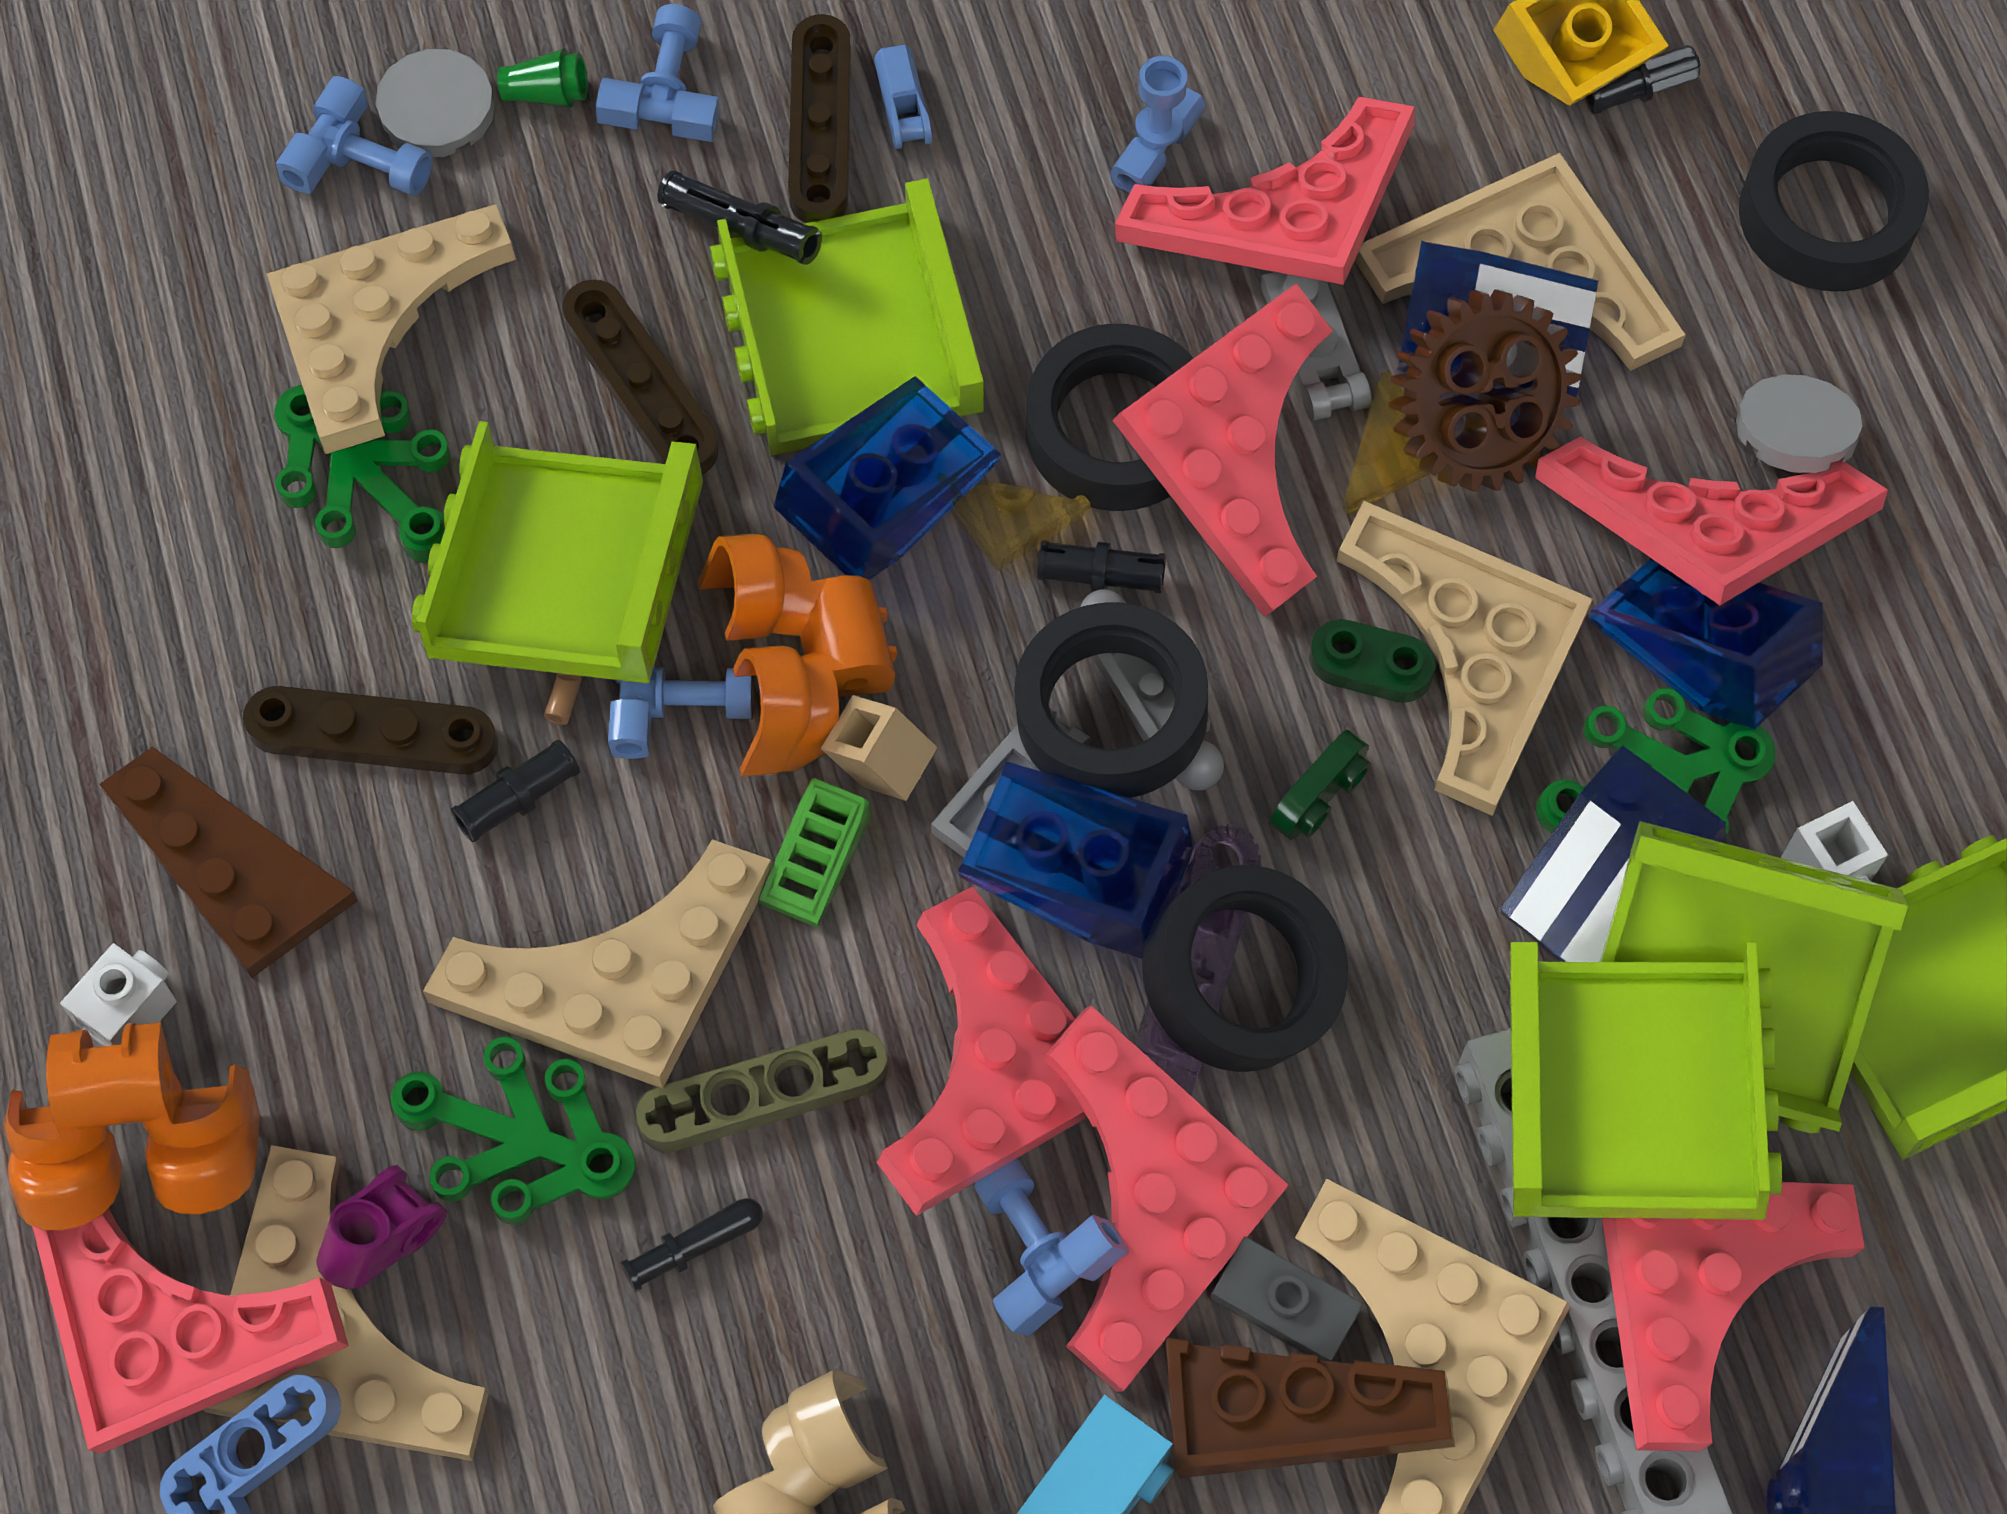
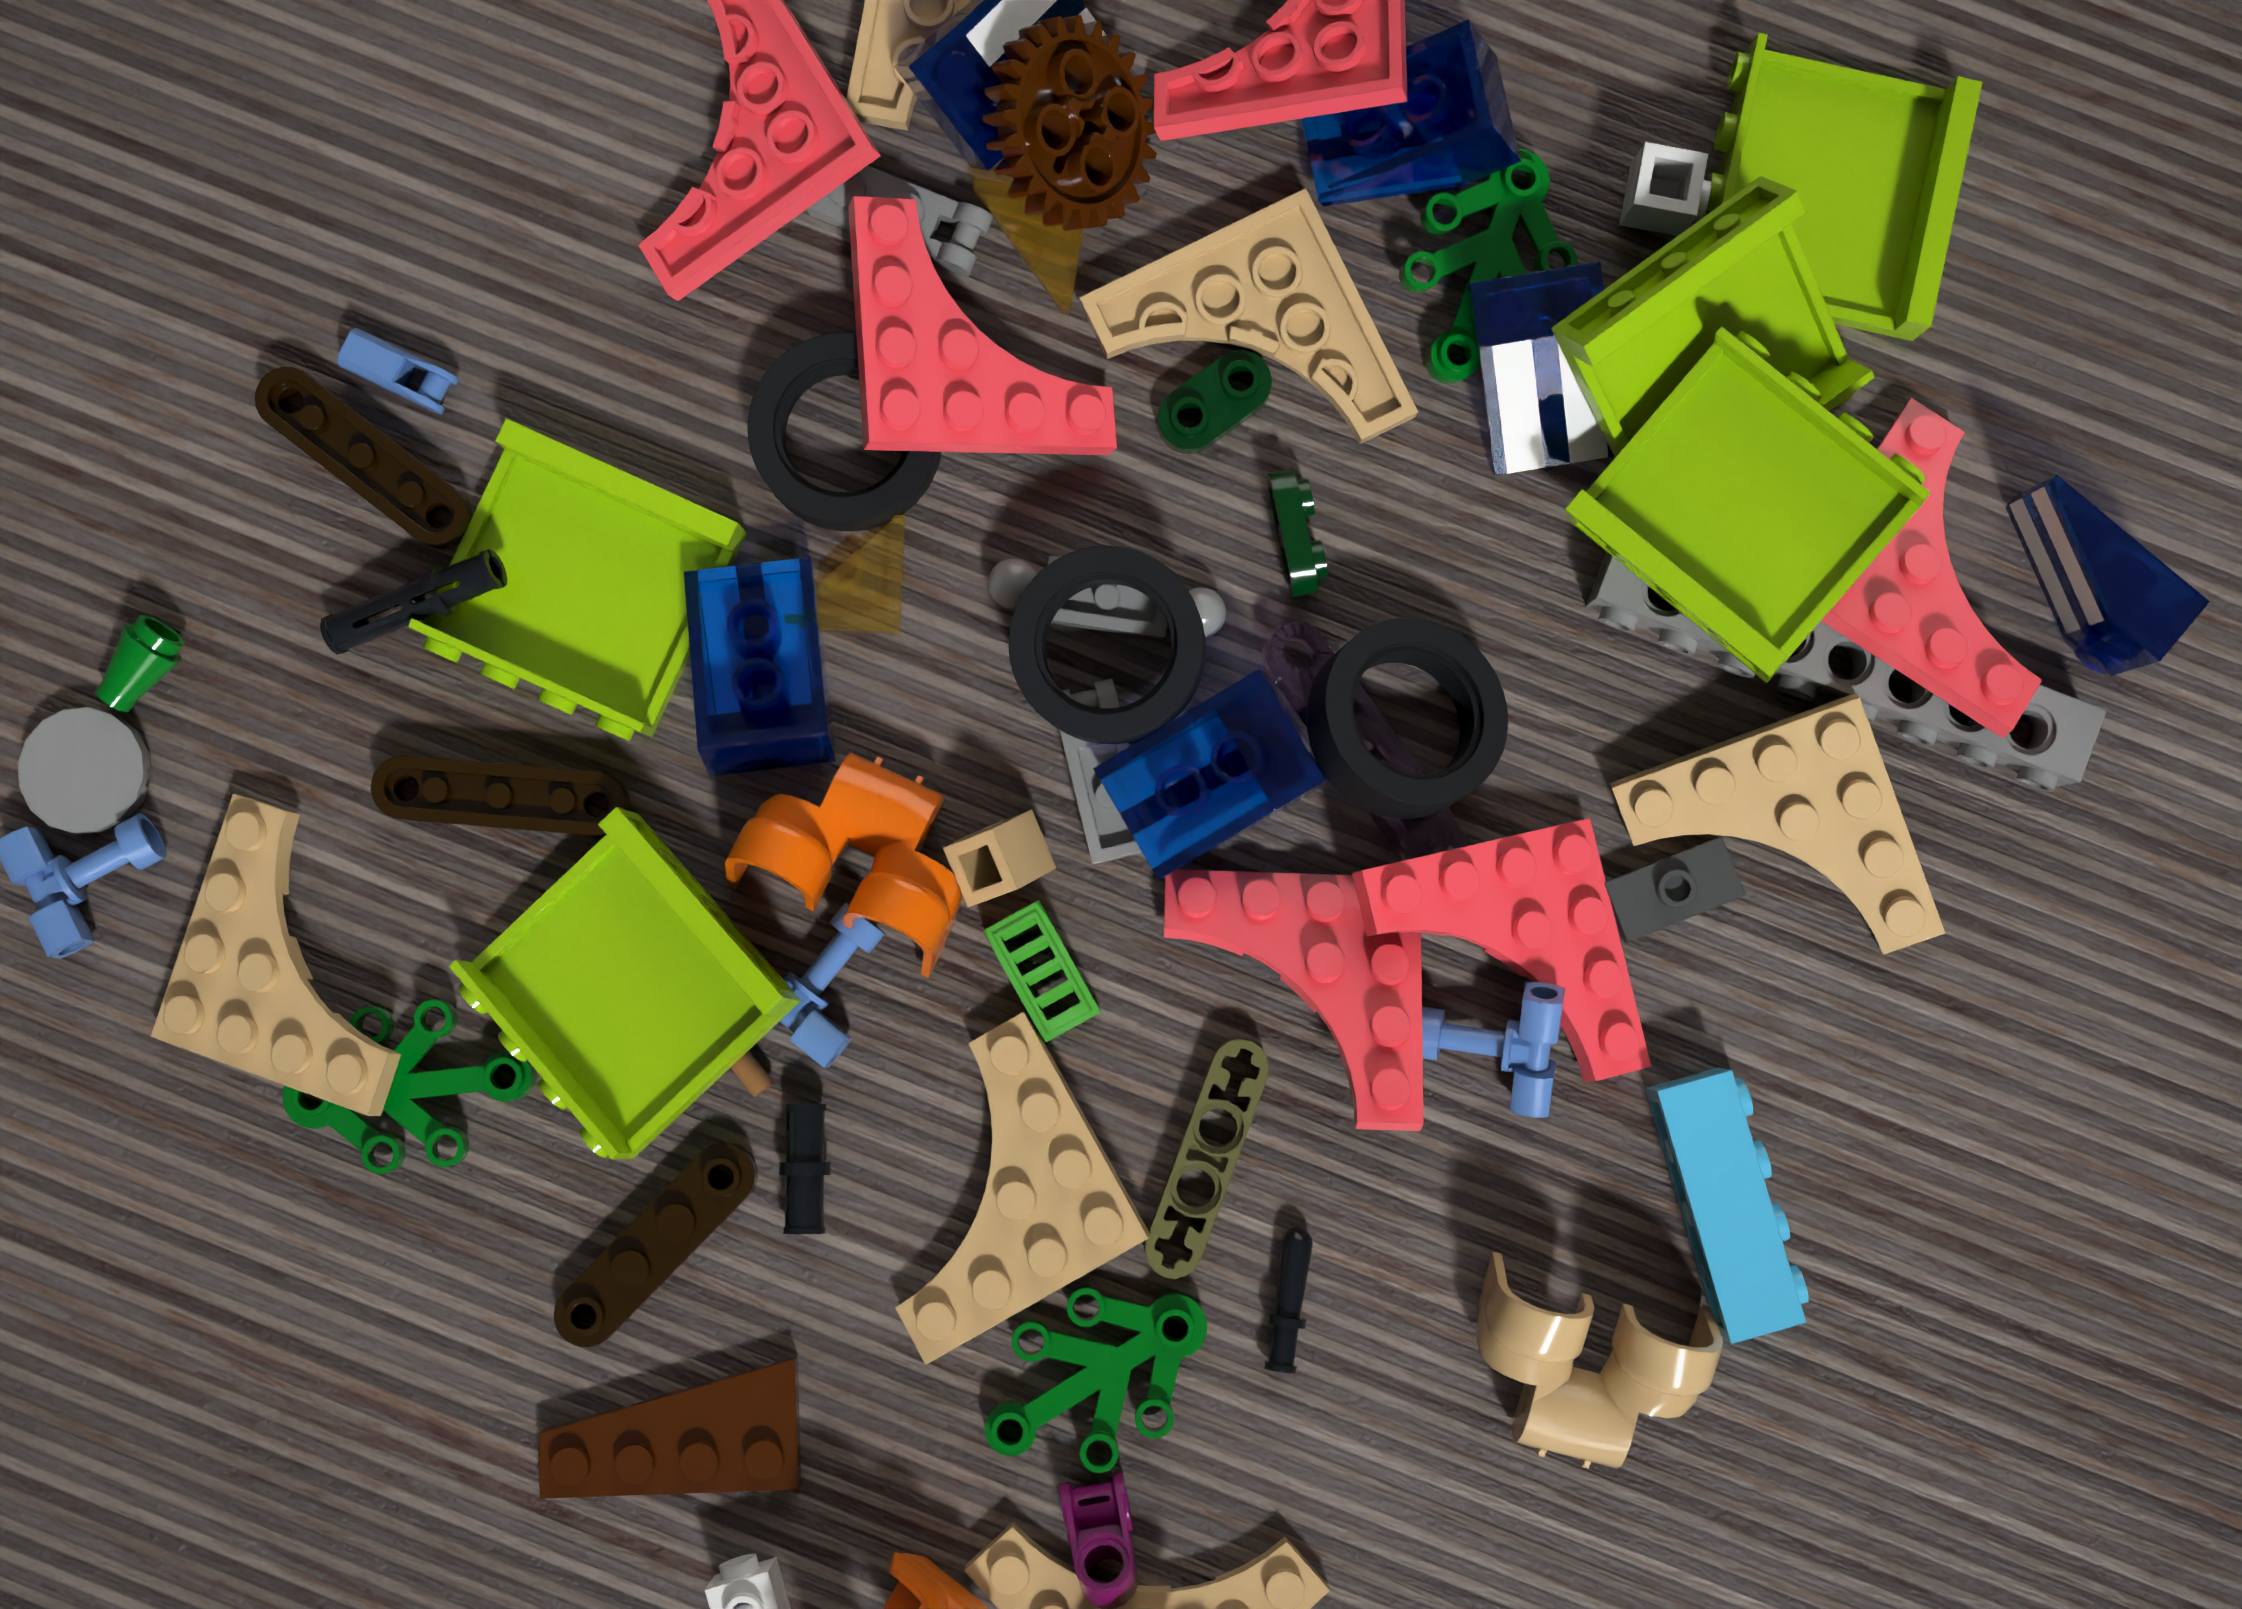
camera: 50 degrees left, 20 degrees up
(660, 93) = (233, 575): medium blue bar -> none
(1101, 566) = (969, 552): black pin -> none
(1165, 120) = (595, 166): medium blue bar -> none
(1278, 1411) = (1762, 962): reddish brown wing -> none

